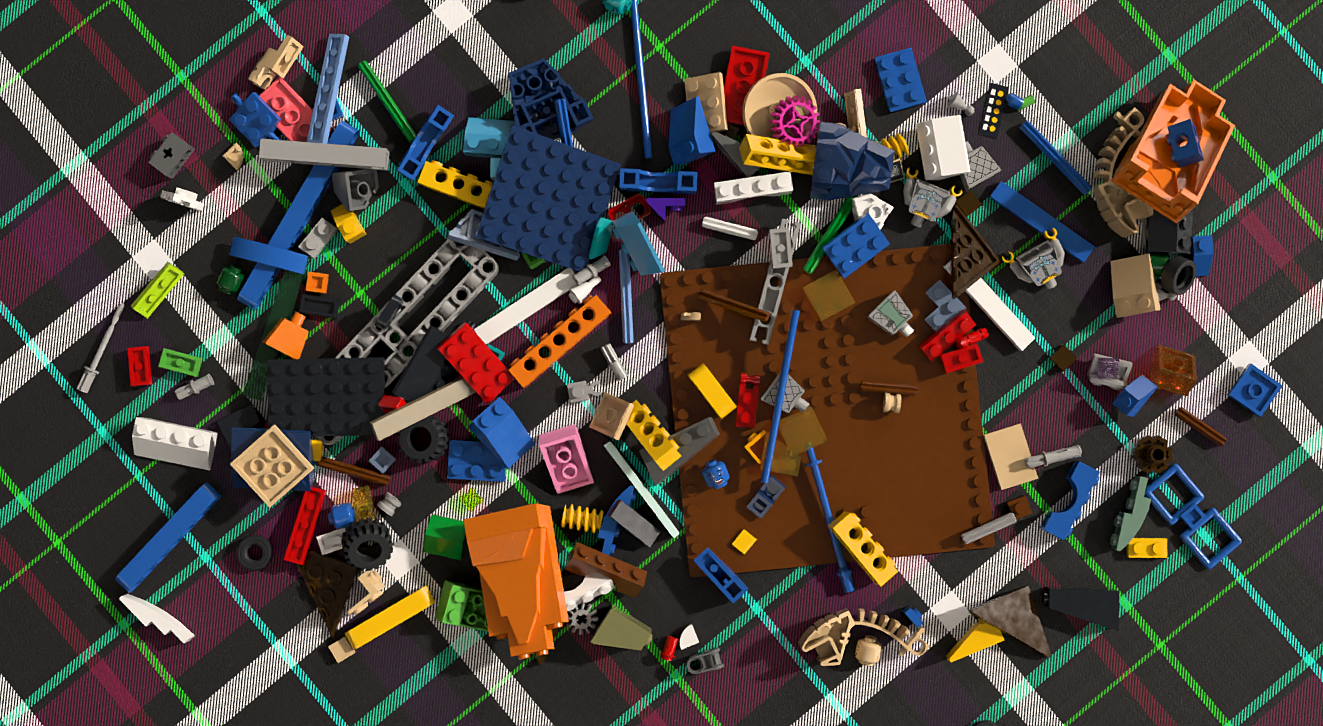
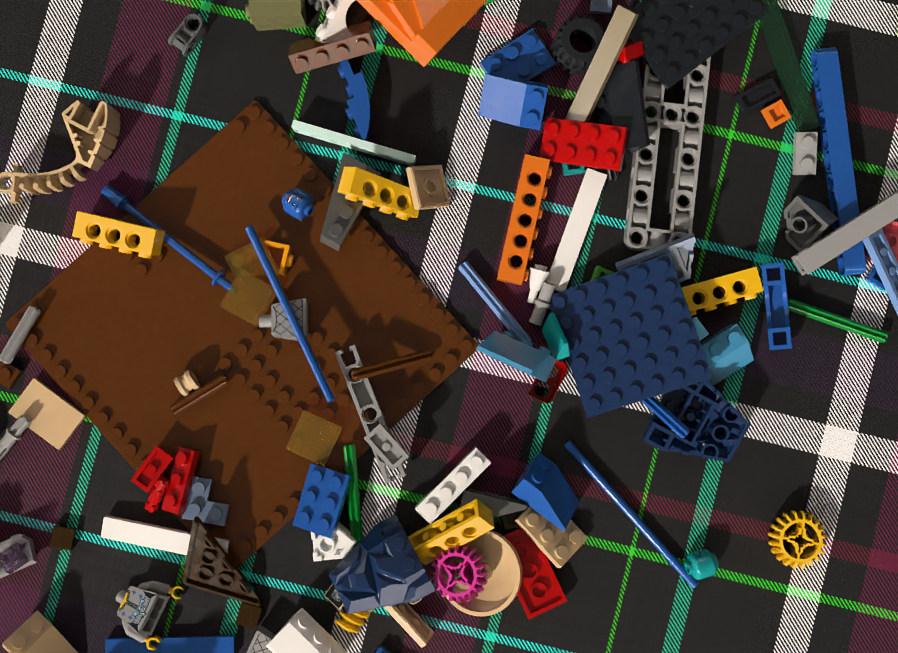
camera: 140 degrees right, 0 degrees up
(230, 279) = (854, 60): dark green head -> none
(268, 255) = (836, 105): blue slope -> none
(288, 336) = (765, 46): orange torso -> none
(348, 224) = (787, 184): yellow slope -> none
(389, 312) = (693, 131): black beam -> none
(466, 499) = (497, 31): clear neon green plate -> none
(565, 458) = (441, 121): bright pink slope -> none
(580, 391) = (472, 190): light grey plate -> none
(582, 518) = (387, 78): yellow piece -> none
(614, 362) = (461, 237): light grey axle -> none
(633, 523) = (338, 106): tile -> none
(644, 181) = (542, 426): blue arch -> none
(659, 205) = (524, 407): dark purple slope -> none
(669, 648) = (228, 25): red pin -> none
(688, 637) = (218, 46): white tile -> none
(694, 316) = (422, 328): tan tile -> none
(712, 391) = (355, 275): yellow beam -> none
(721, 575) = (226, 118): blue slope -> none
(729, 228) = (447, 433): white axle -> none
(744, 541) = (230, 164): yellow piece -> none
(747, 401) = (317, 289): red plate -> none
(766, 496) = (239, 217): dark blue slope -> none
(868, 650) = (50, 149): tan head -> none
(892, 315) = (243, 461): torso -> none
(914, 615) = (31, 209): blue plate -> none
(927, 200) = (287, 591): light grey torso -> none

